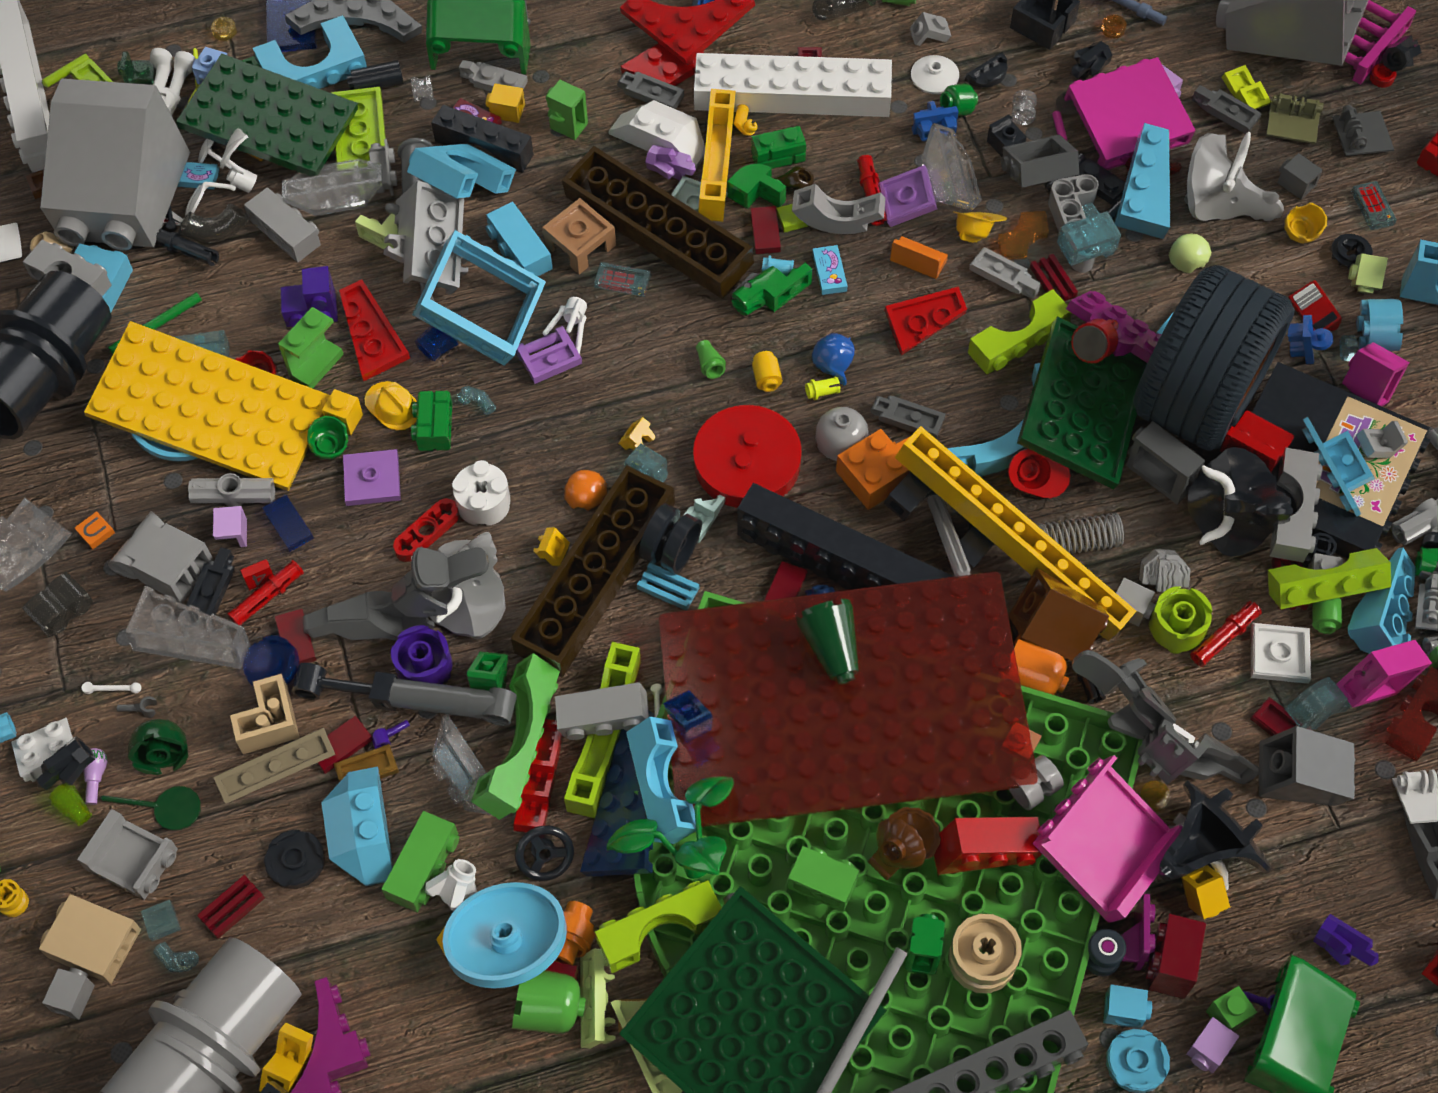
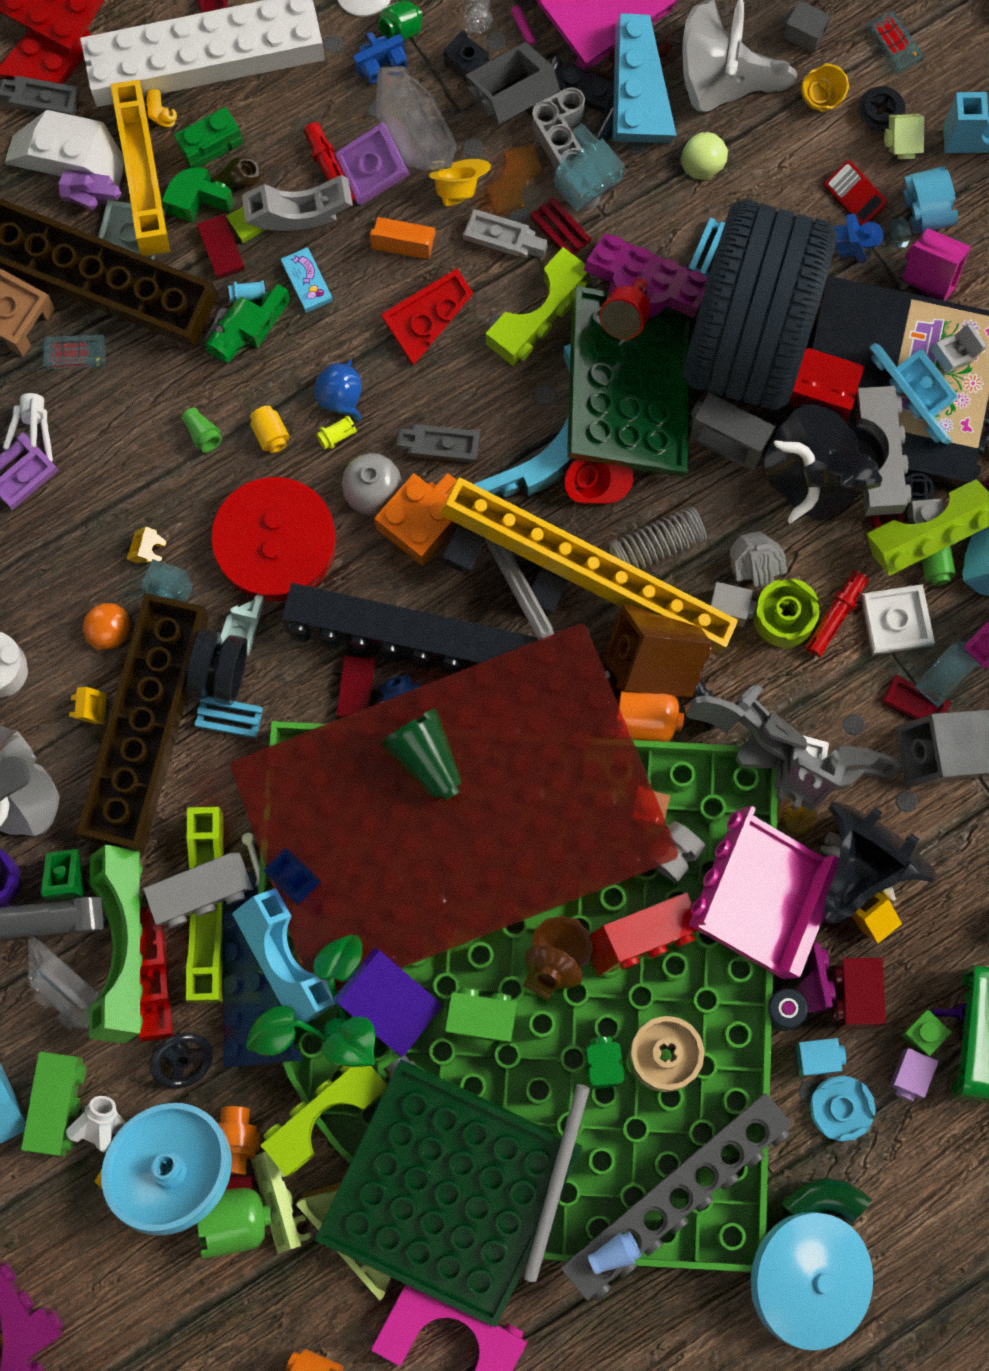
camera: 15 degrees left, 15 degrees up
(751, 842) = (389, 1000): none -> dark purple tile

